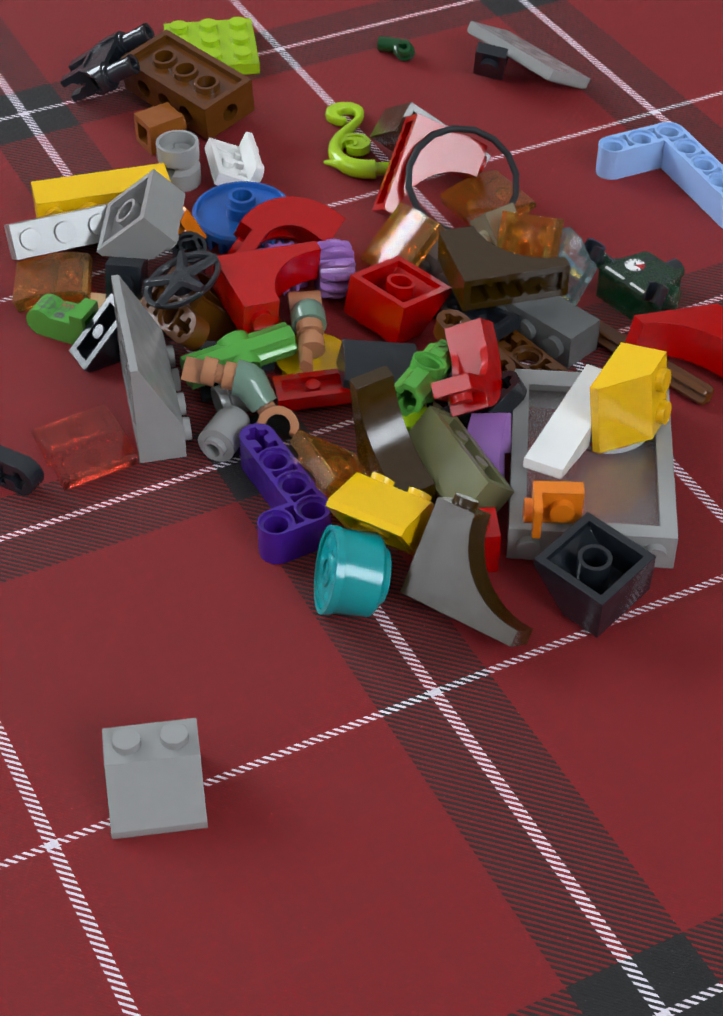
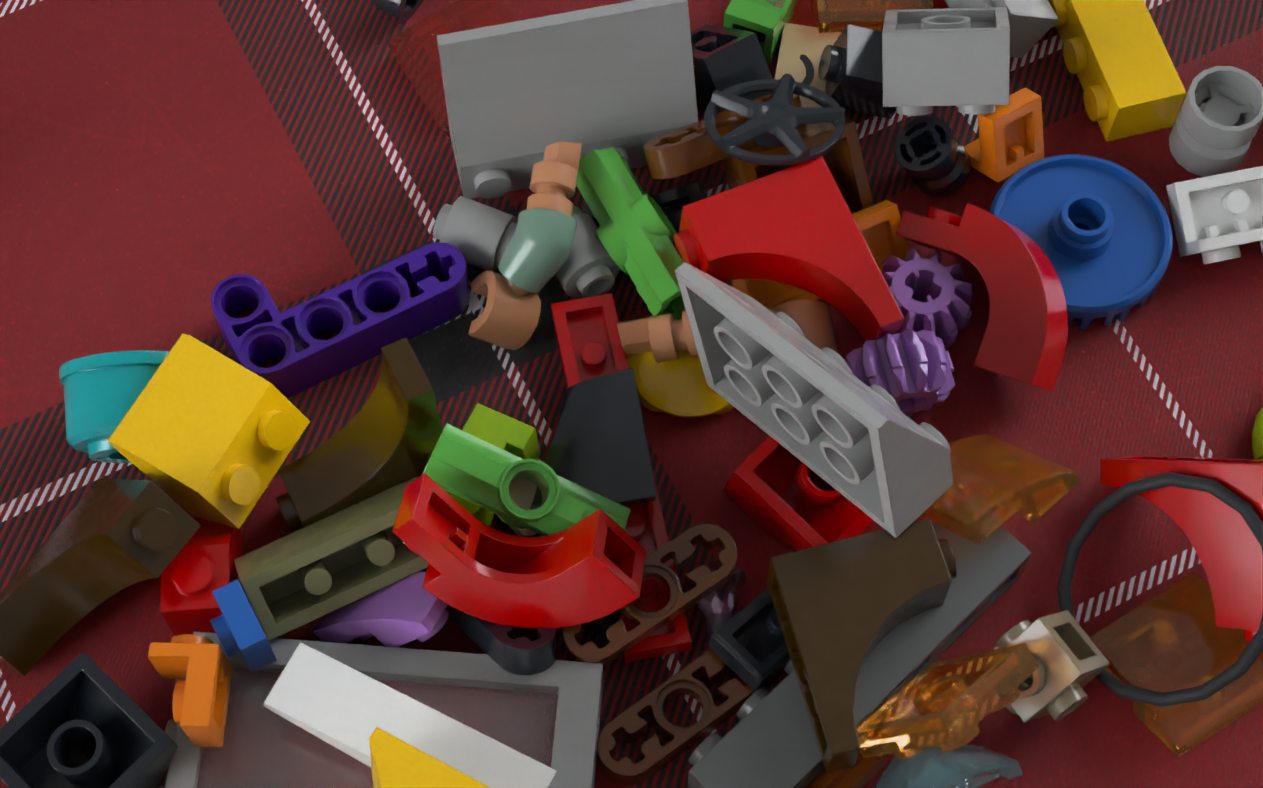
camera: 90 degrees right, 20 degrees up
(326, 461) = (339, 369): clear orange plate -> none
(384, 244) = (815, 404): none -> light grey slope
(511, 487) = (239, 627): none -> blue plate

